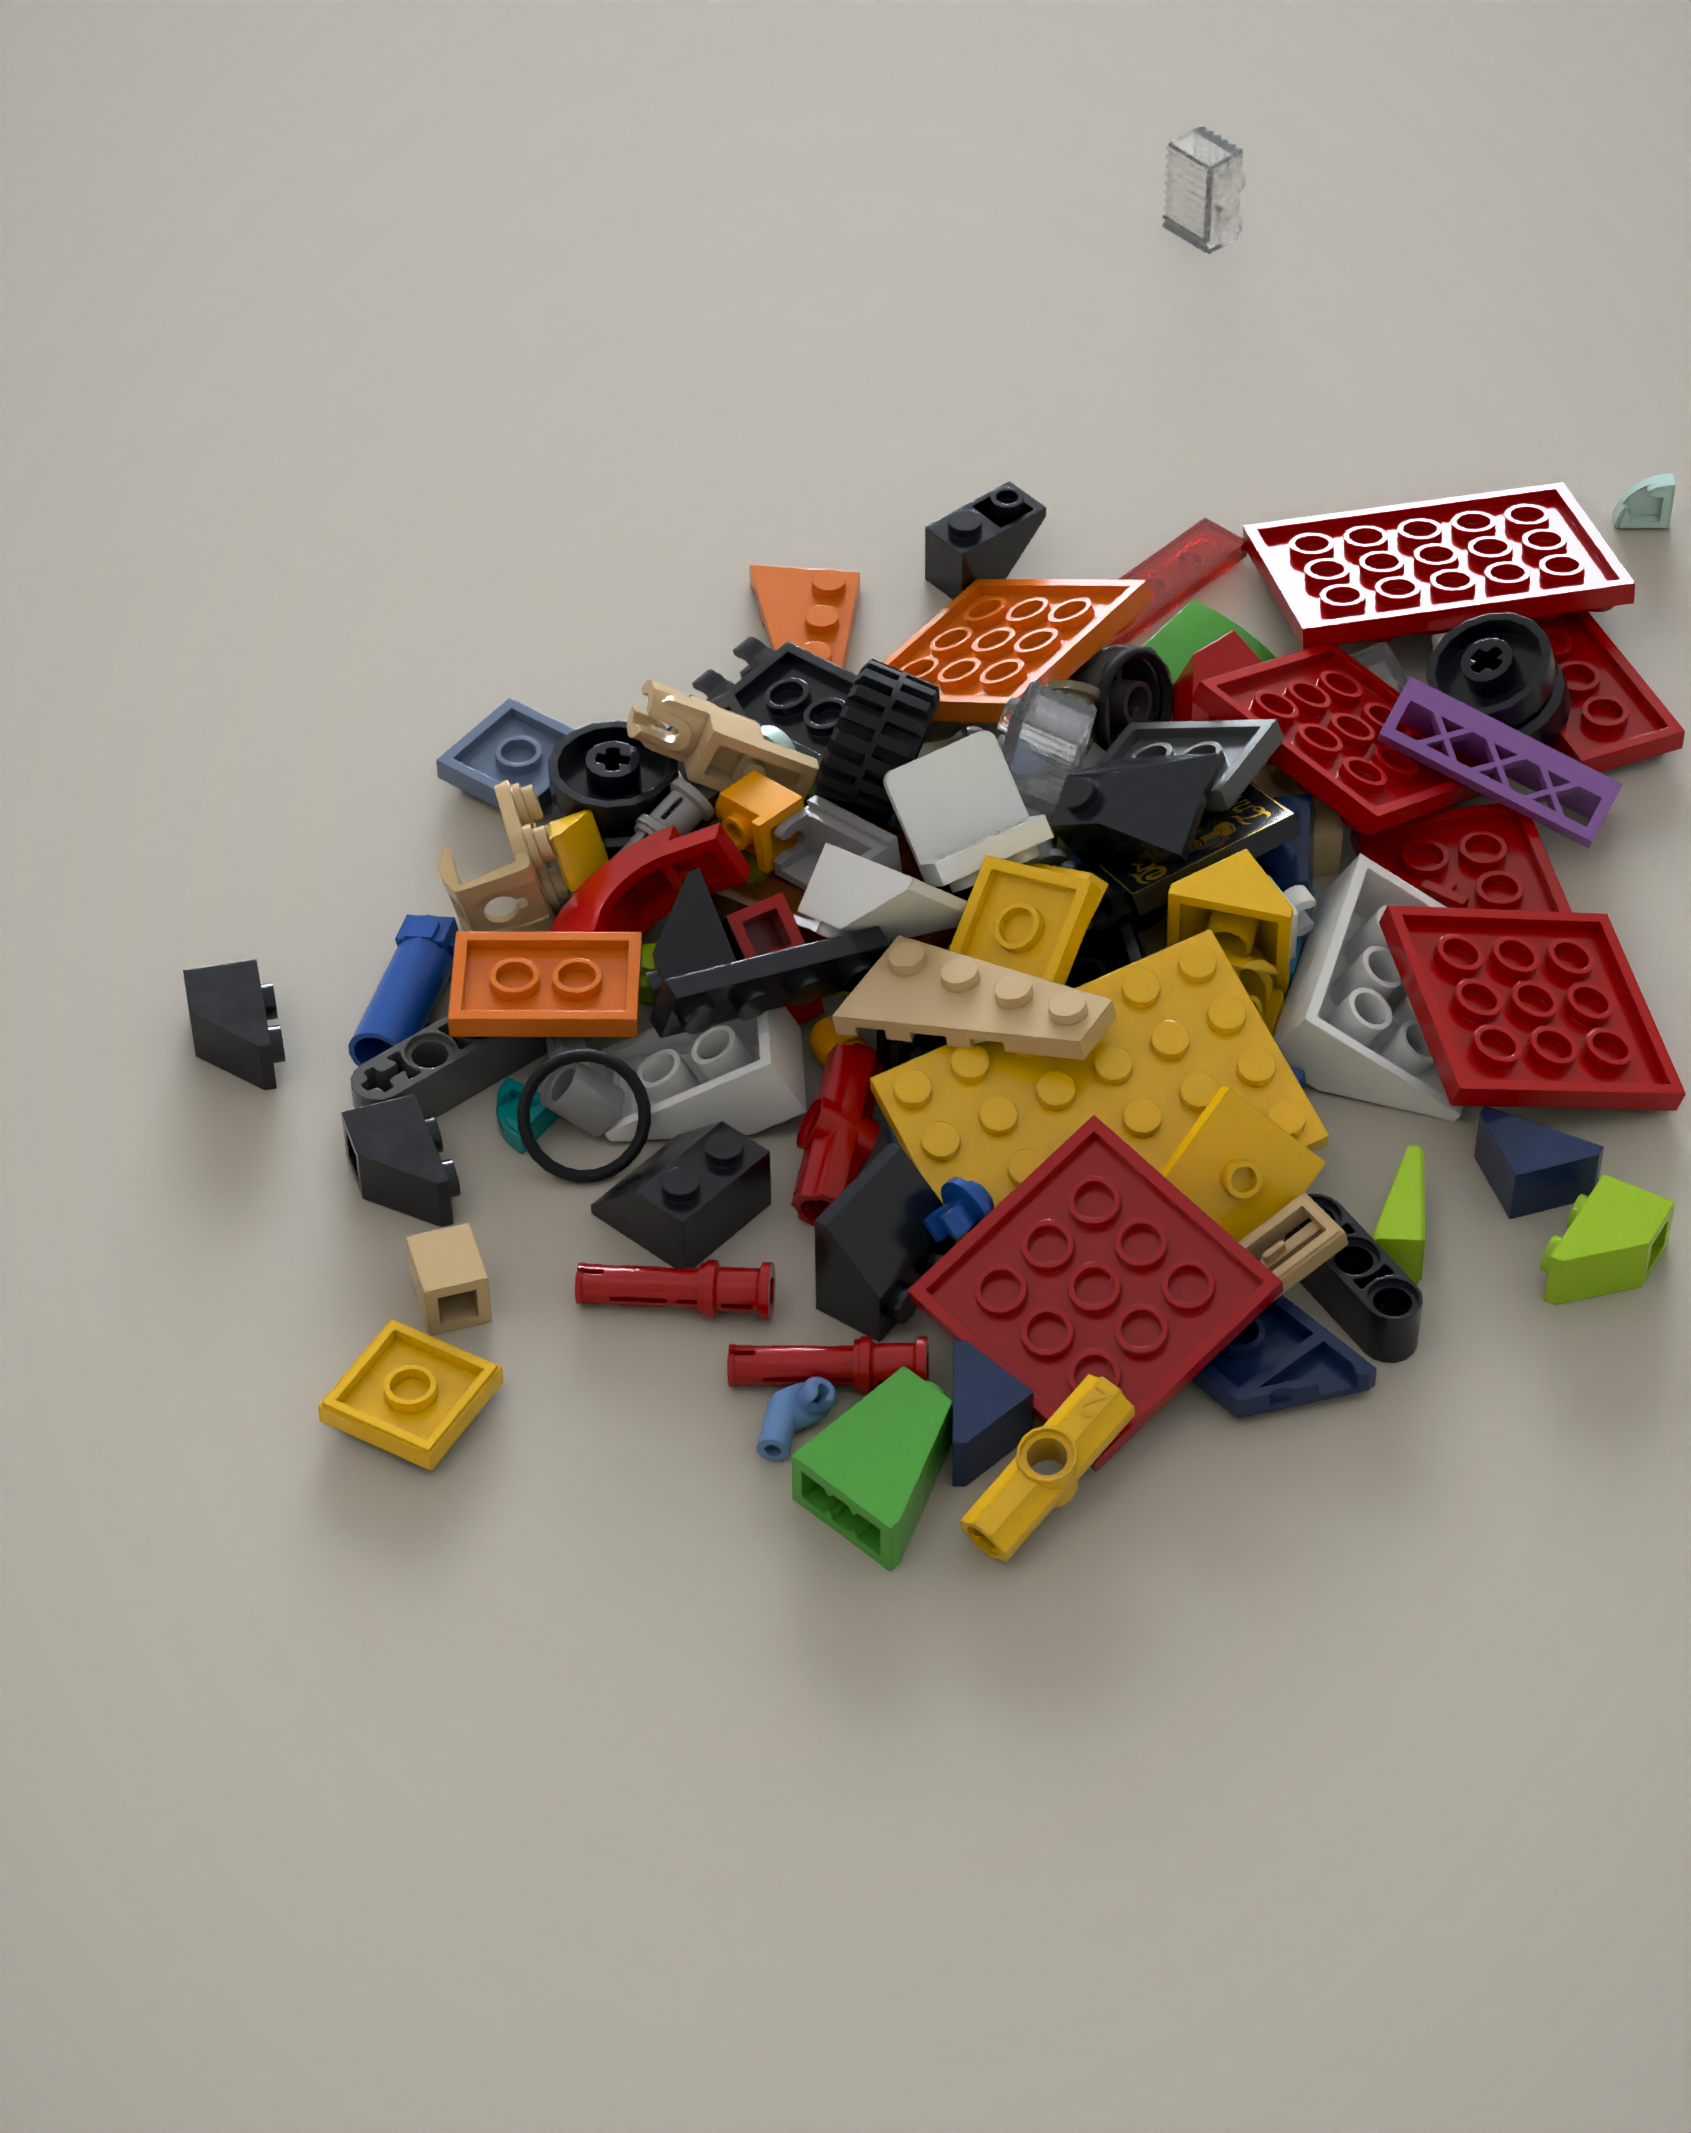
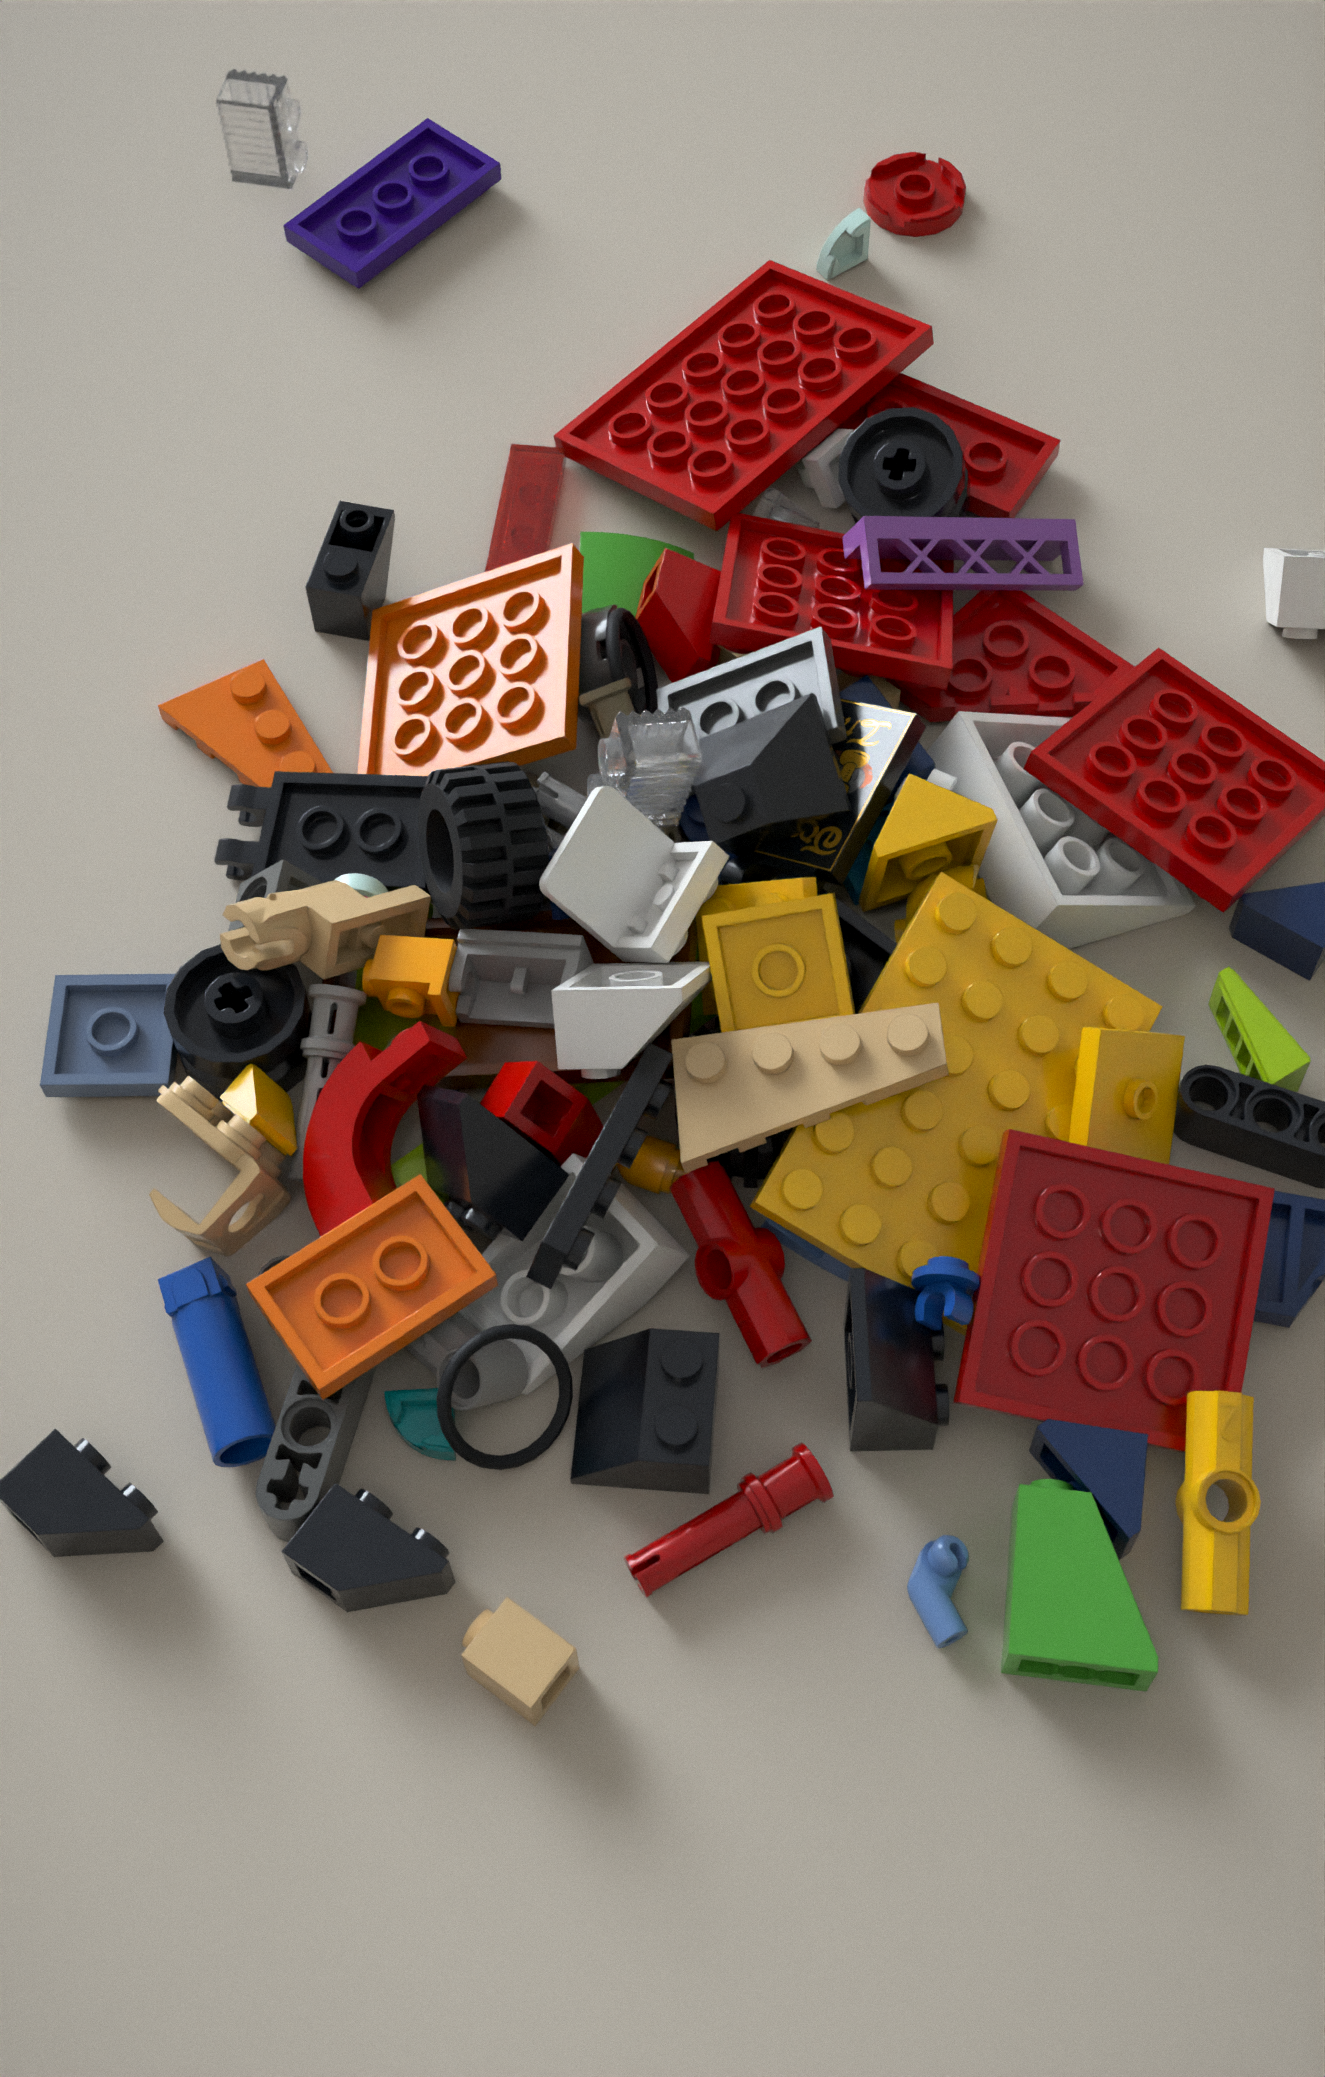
camera: 35 degrees left, 15 degrees up
(410, 1394) = (587, 1817): yellow plate -> none
(855, 1366) = (957, 1495): red pin -> none
(1278, 298) = (392, 202): none -> dark purple plate
(1305, 1249) = (1232, 1100): tan tile -> none

